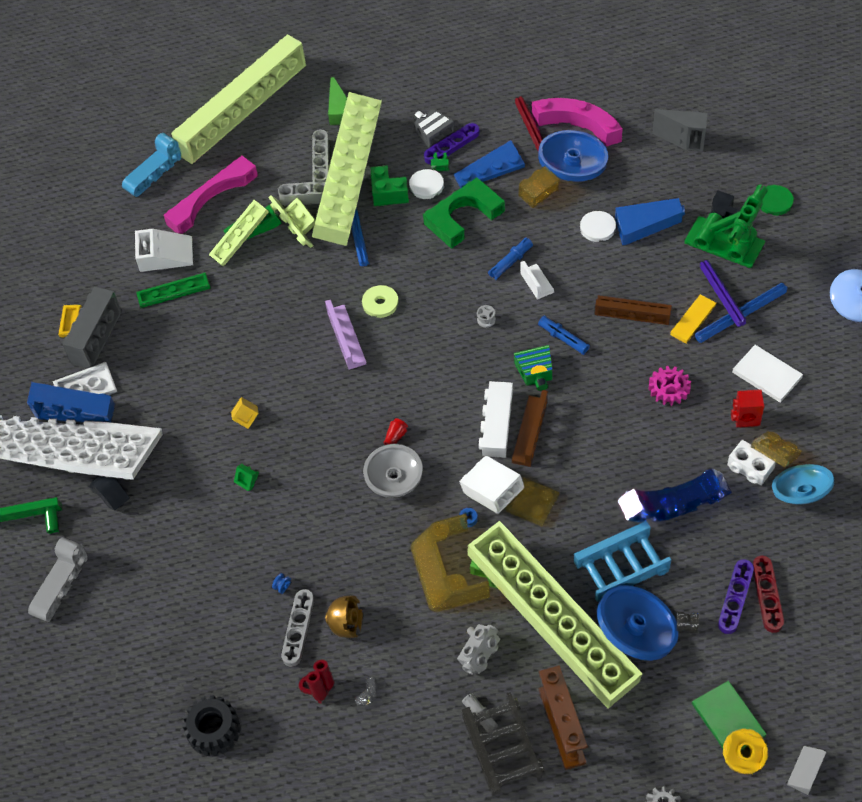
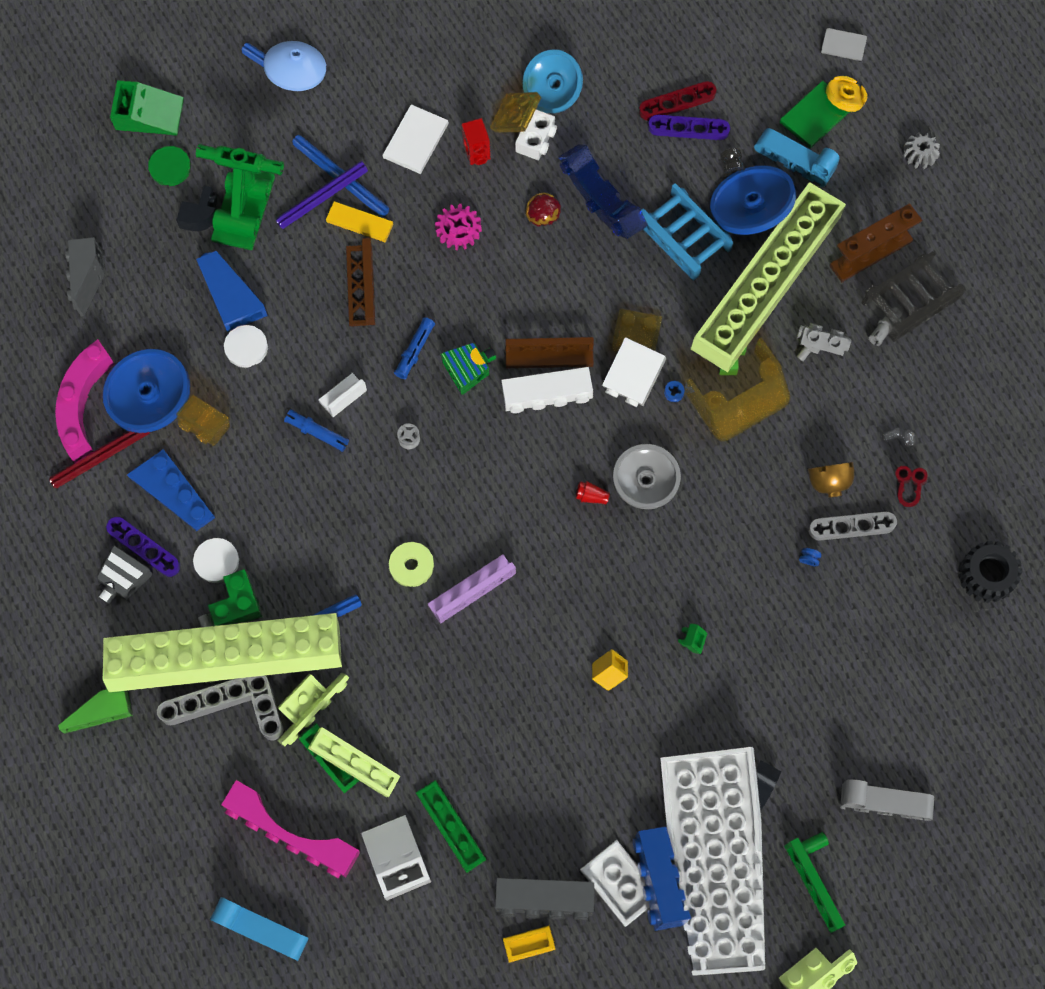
camera: 110 degrees left, 15 degrees up
(239, 98) = (111, 840): yellowish green brick -> none
(440, 164) = (184, 547): green tile -> none
(473, 194) = (274, 525): green arch -> none
(665, 694) = (797, 157): none -> dark azure beam
(673, 455) = (543, 209): none -> dark red hair
(830, 187) = (145, 109): none -> slope

